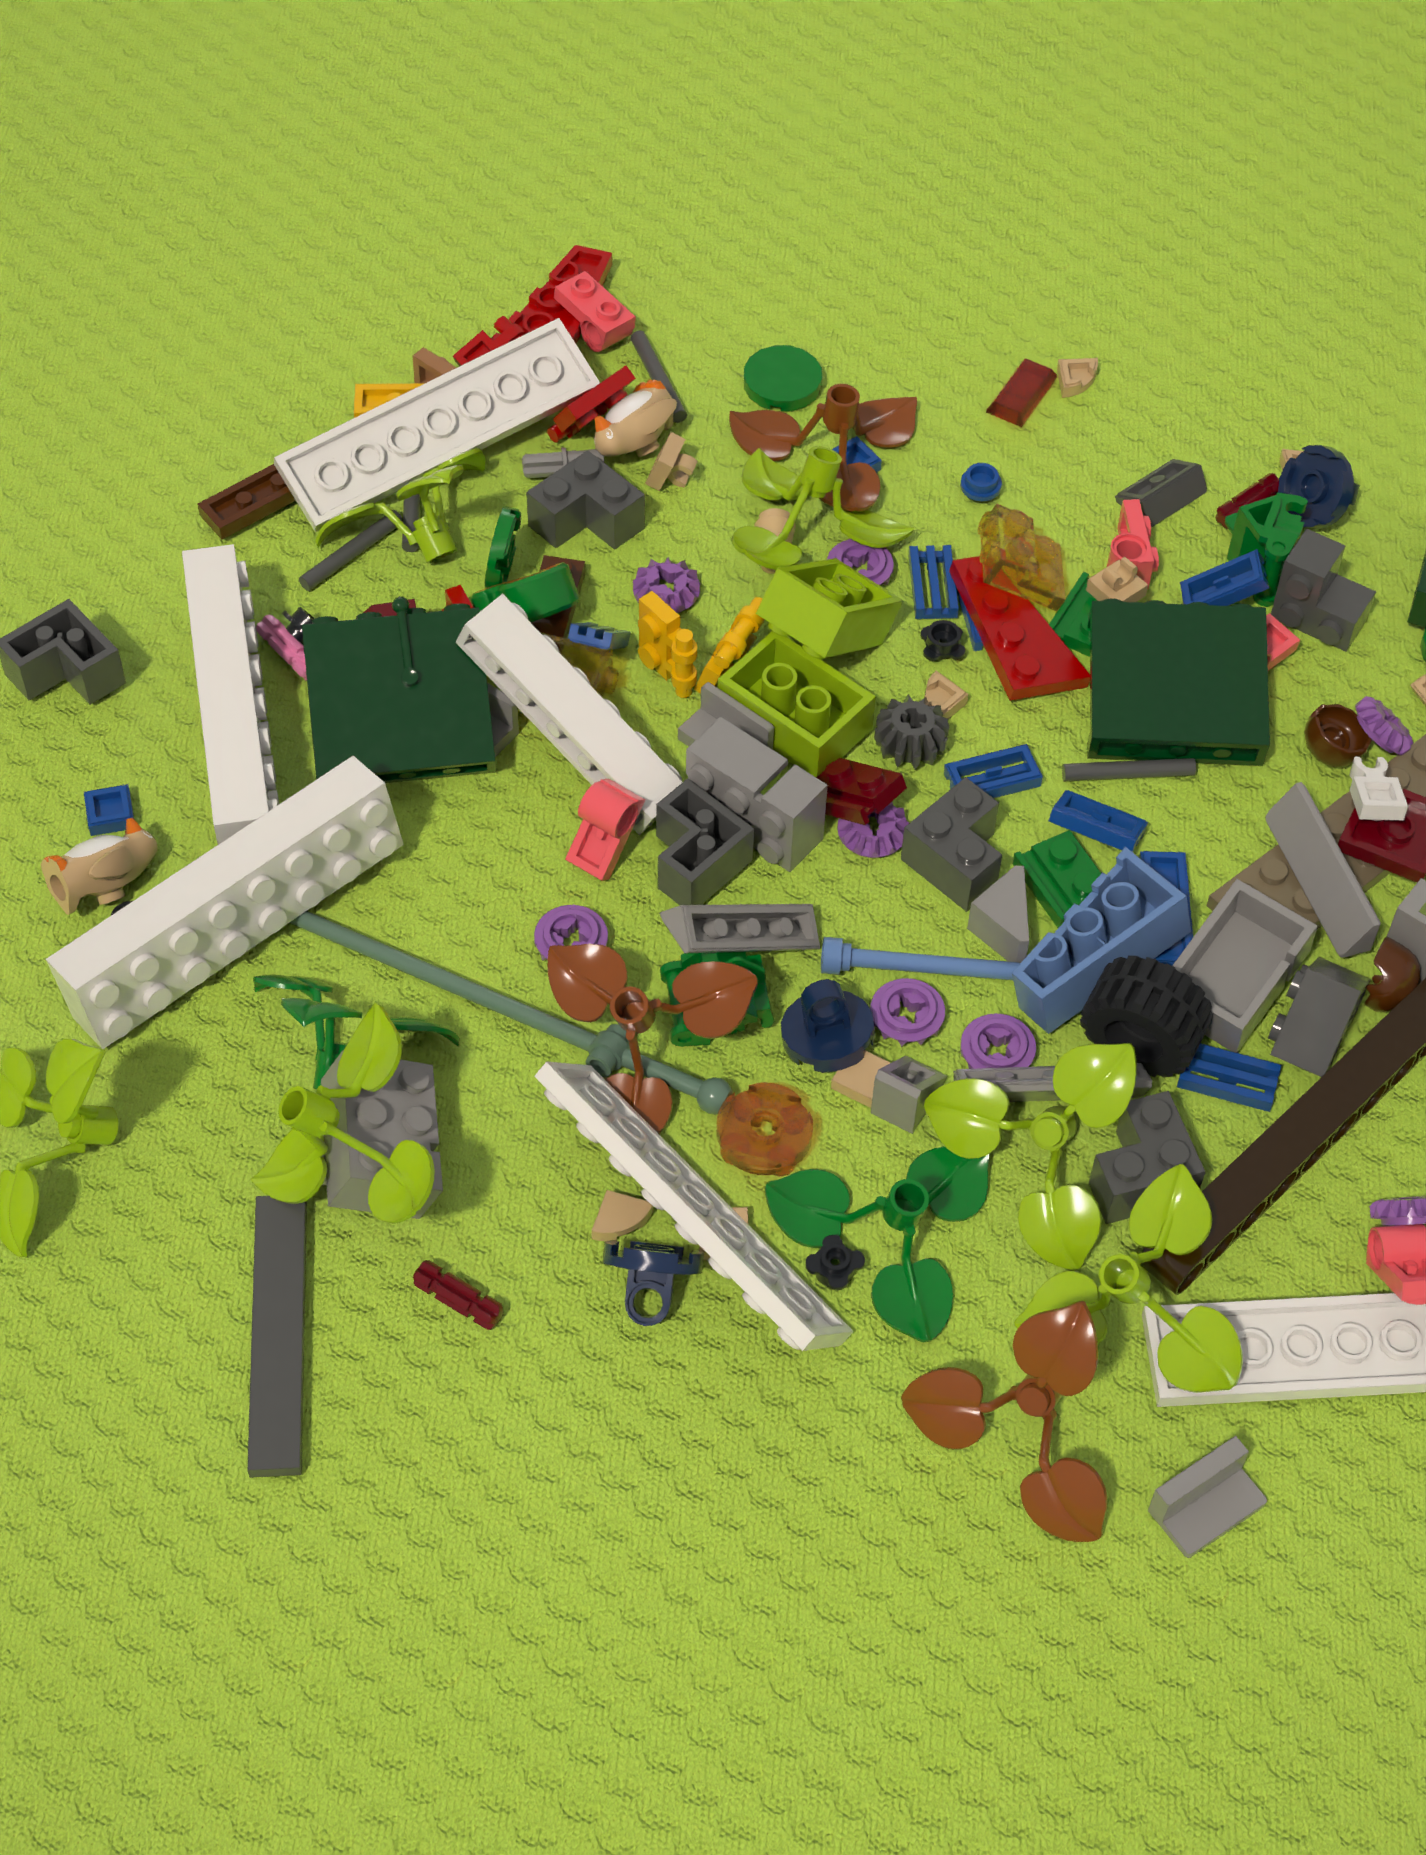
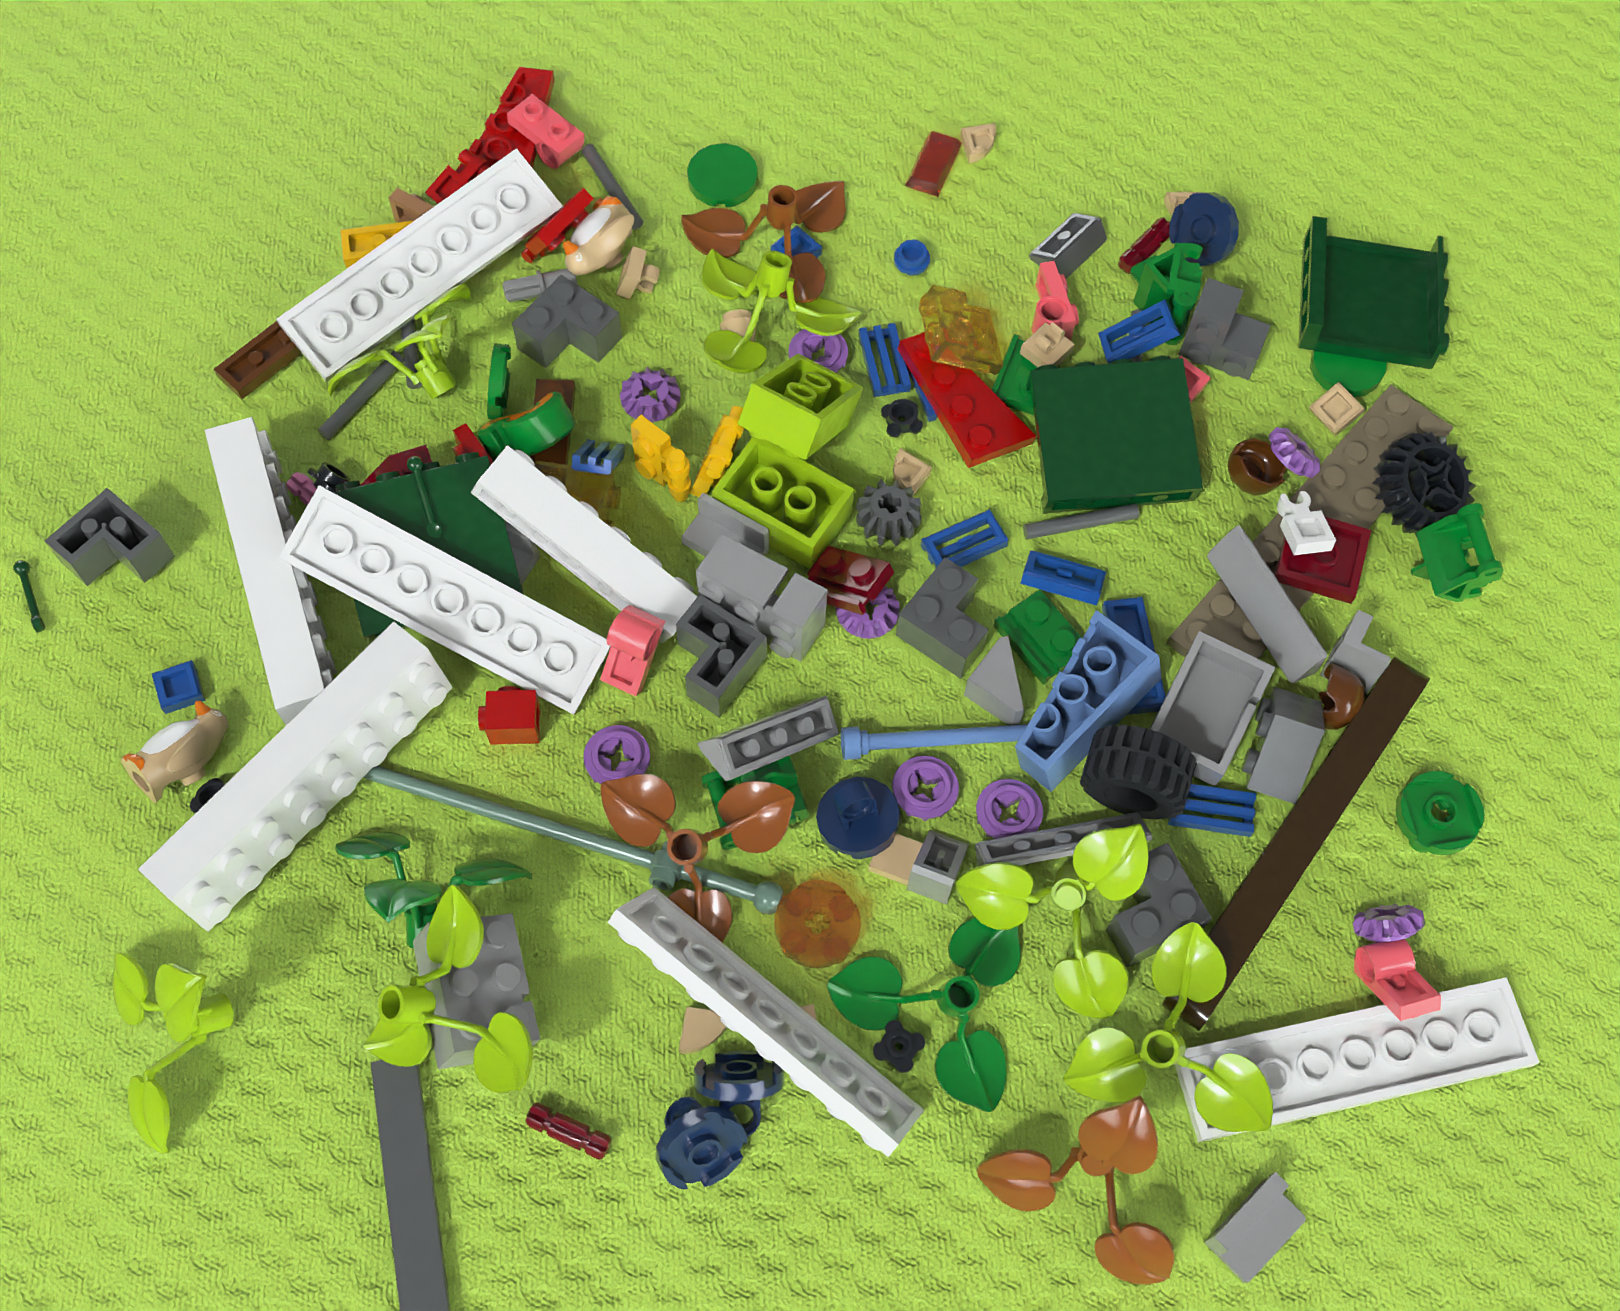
camera: 10 degrees left, 10 degrees up
(413, 750) = (445, 599): none -> white plate
(462, 881) = (511, 716): none -> red brick
(600, 1321) = (699, 1143): none -> dark blue tile

